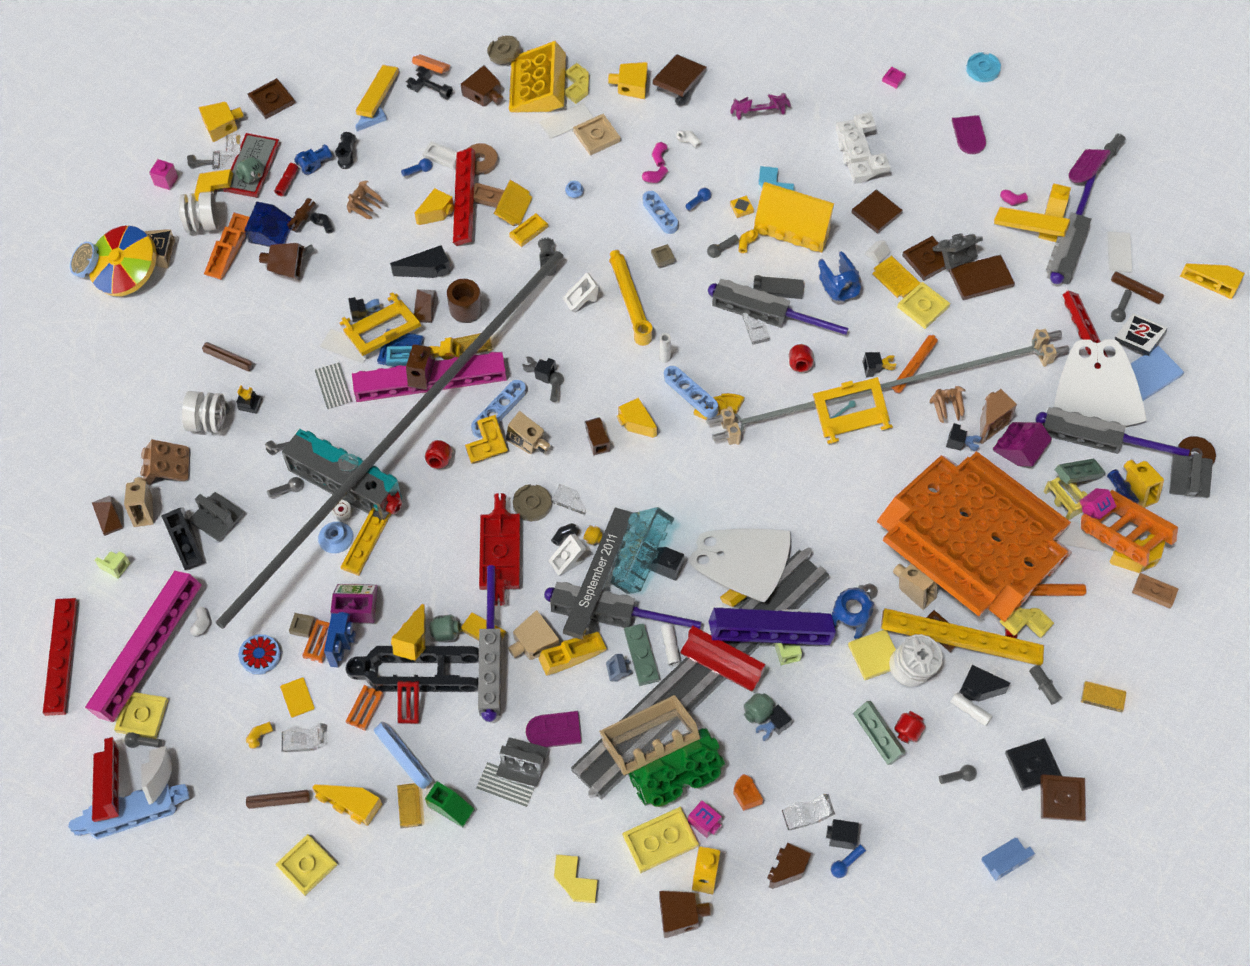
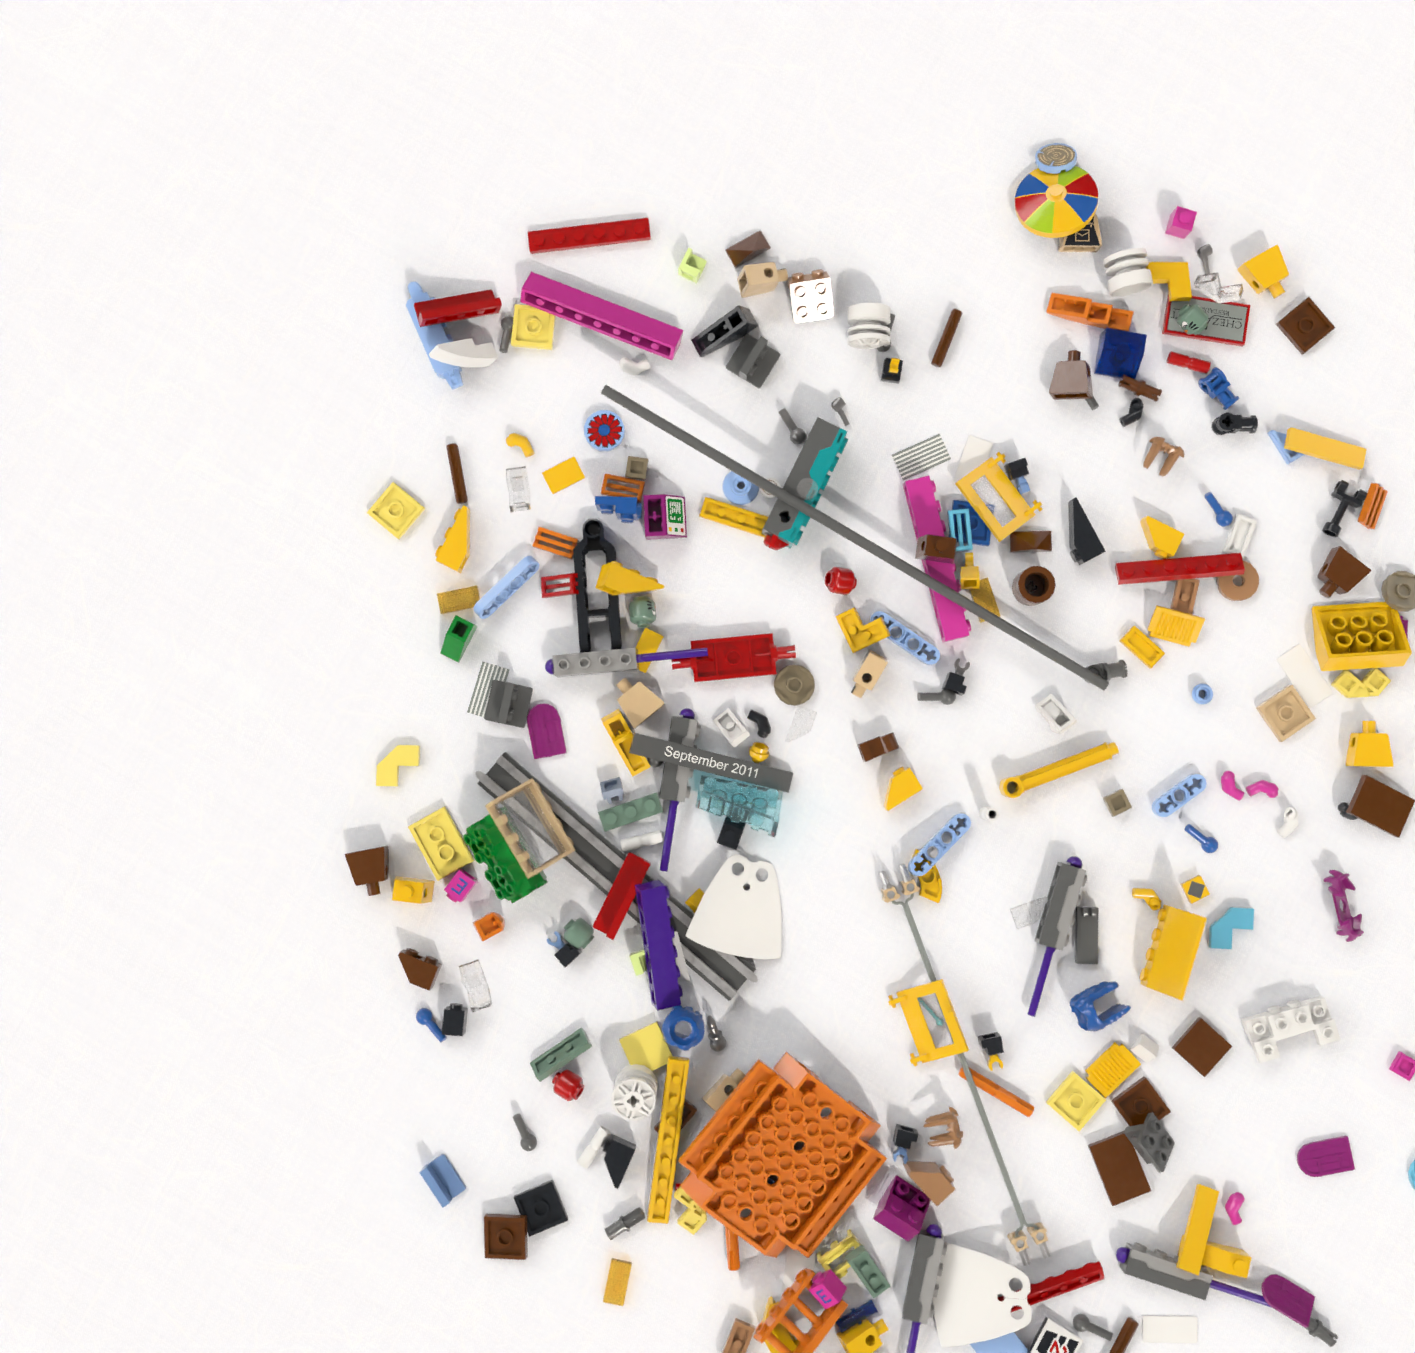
camera: 85 degrees right, 25 degrees up
(715, 250) = (1132, 860): dark grey bar -> none
(800, 358) = (991, 964): red head -> none

